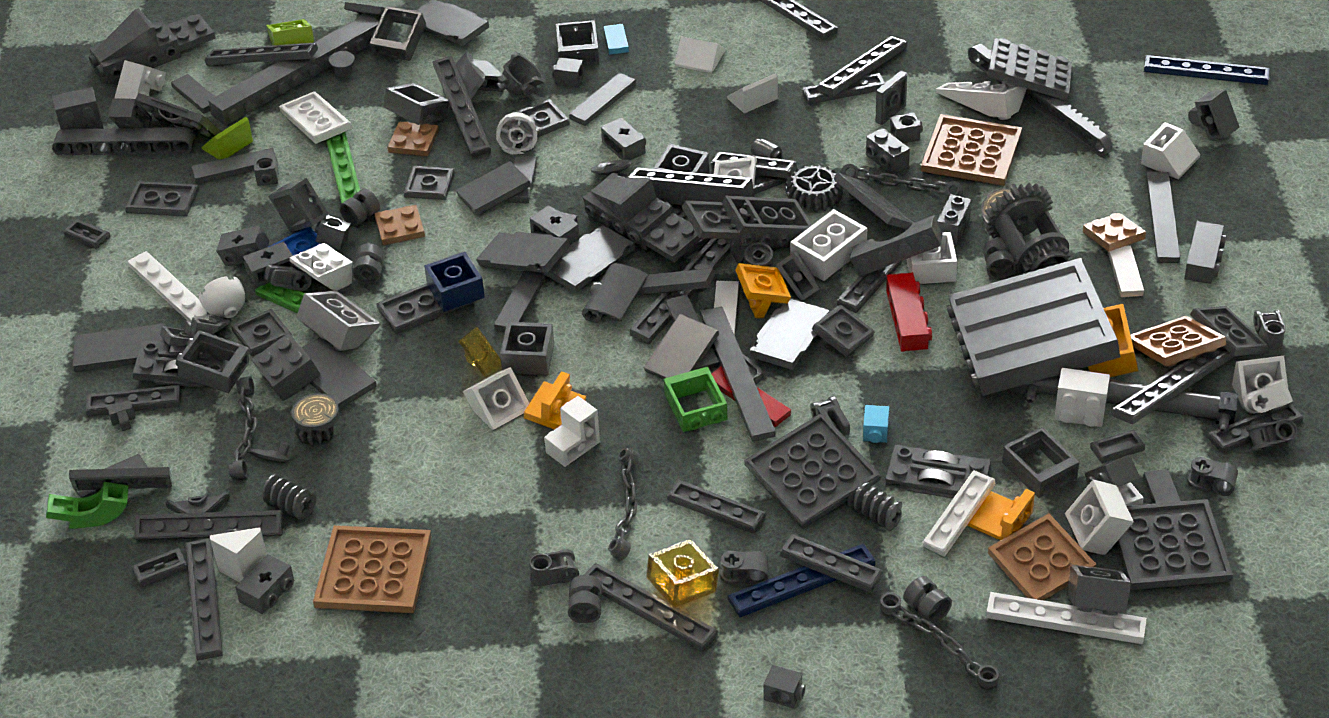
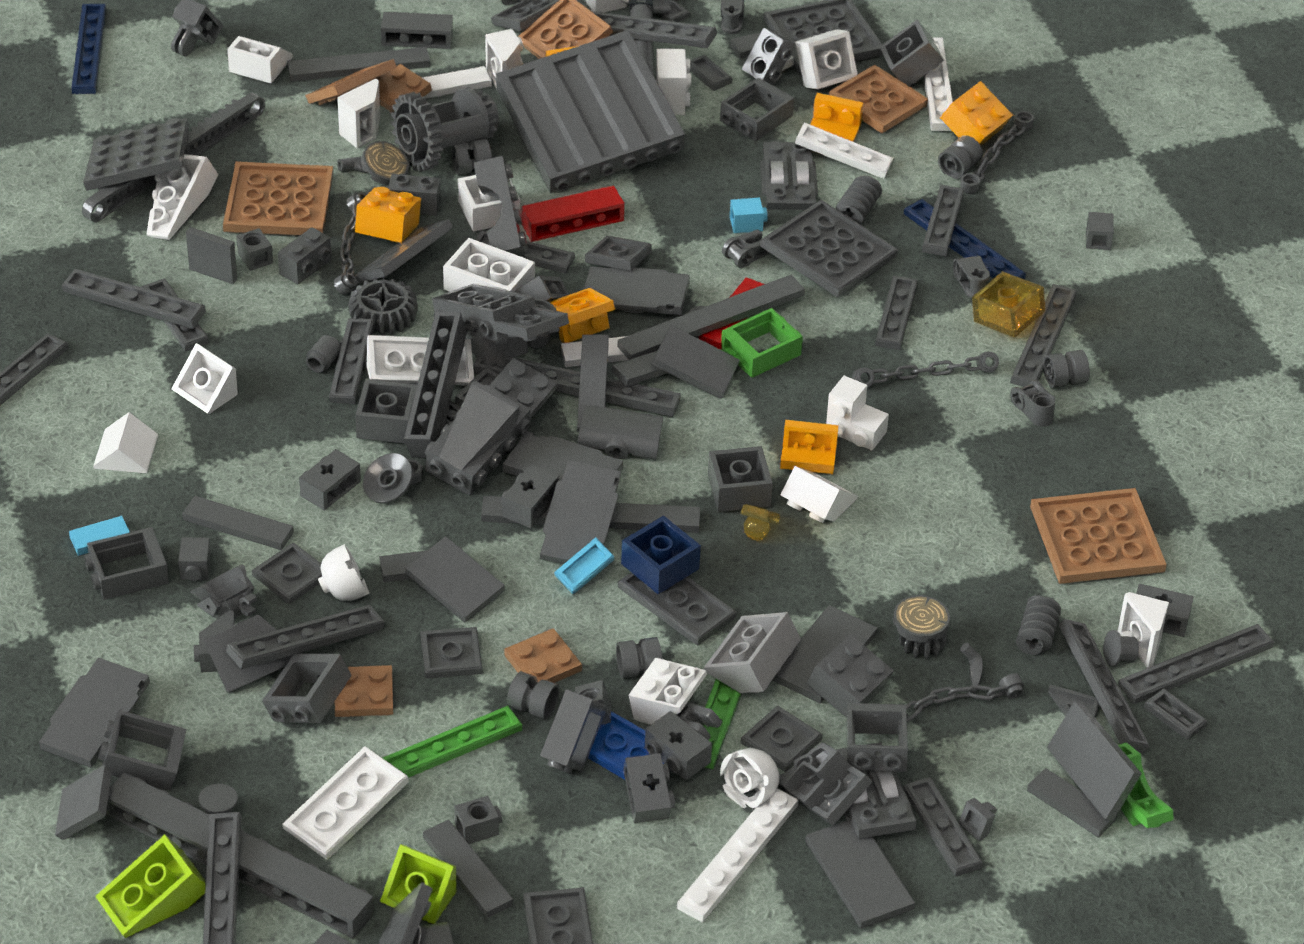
camera: 110 degrees left, 0 degrees up
(476, 251) = (584, 565): none -> medium azure tile
(922, 195) = (388, 214): none -> light orange brick
(983, 621) = (976, 114): none -> light orange brick
(1068, 195) = (360, 113): none -> white slope
(1112, 192) = (348, 83): none -> medium nougat plate
(1132, 287) = (502, 52): none -> white slope

